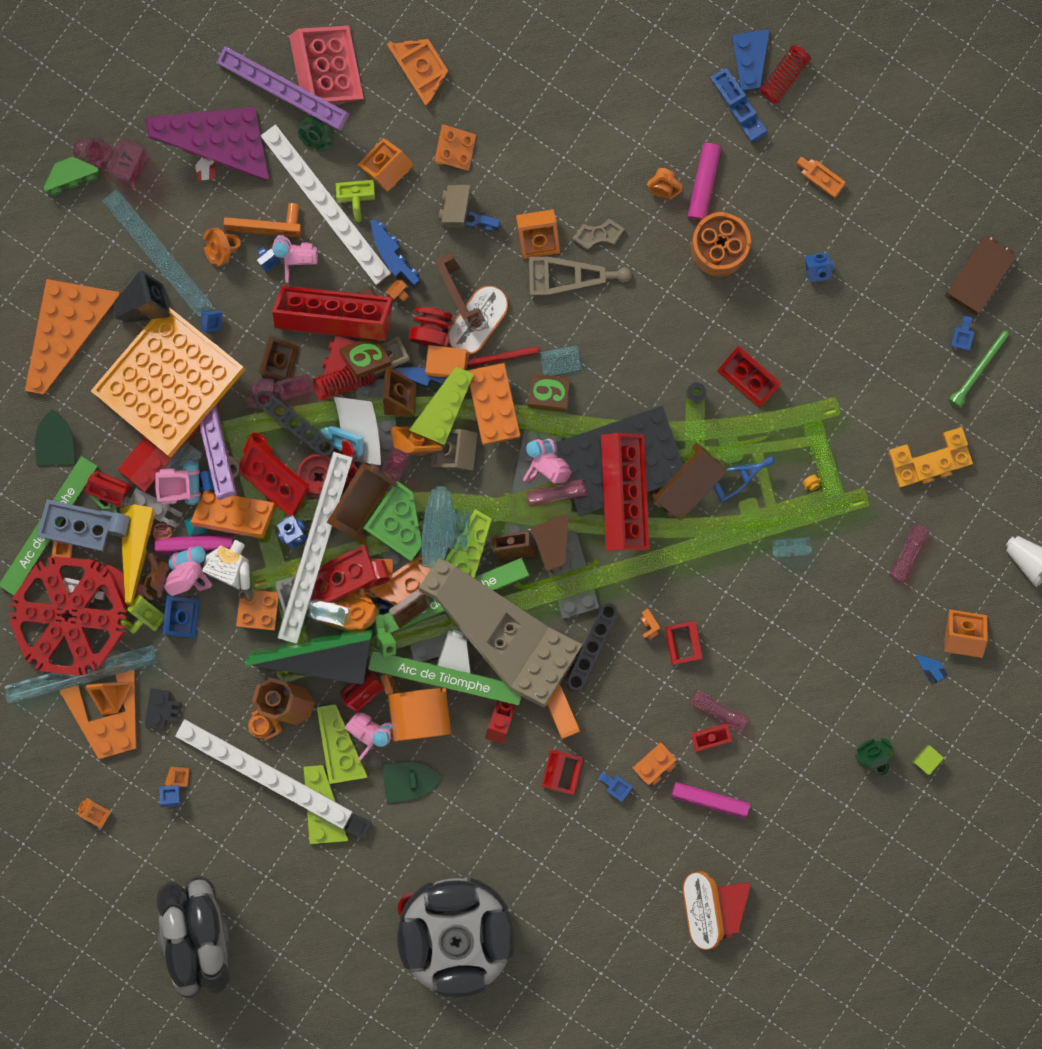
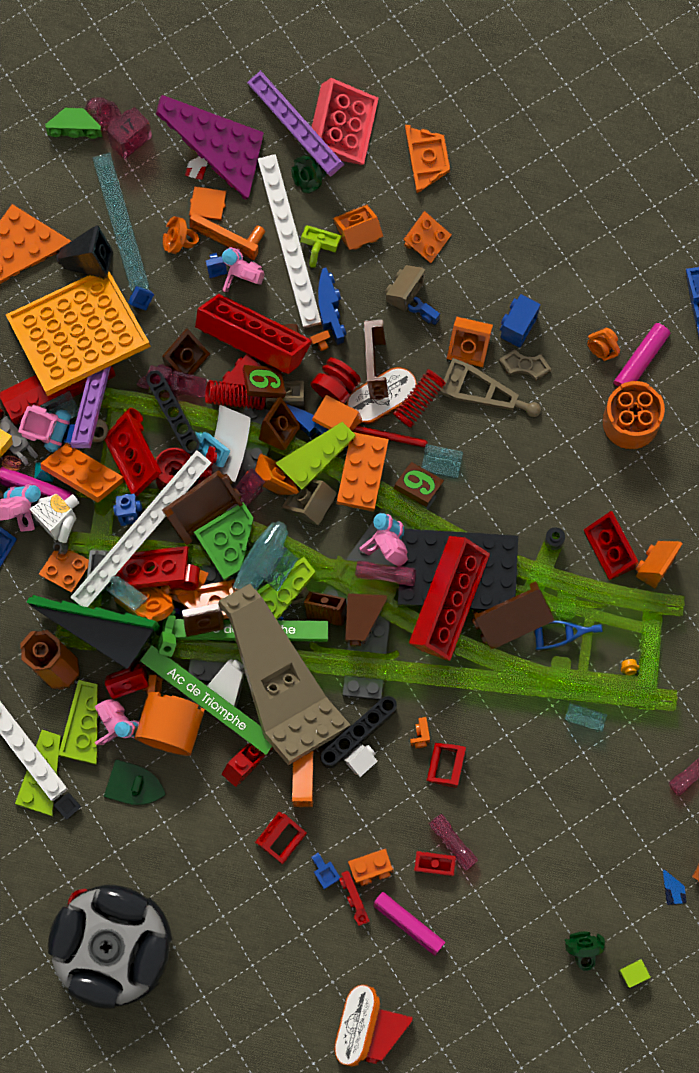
camera: 25 degrees right, 10 degrees down
(232, 199) = (208, 203): none -> orange piece
(263, 726) = (22, 676): orange piece -> none
(527, 287) = (434, 377): none -> red piece
(578, 193) = (519, 320): none -> blue brick
(605, 671) = (360, 759): none -> white brick
(652, 799) = (354, 899): none -> red hinge
(799, 375) = (657, 562): none -> orange slope

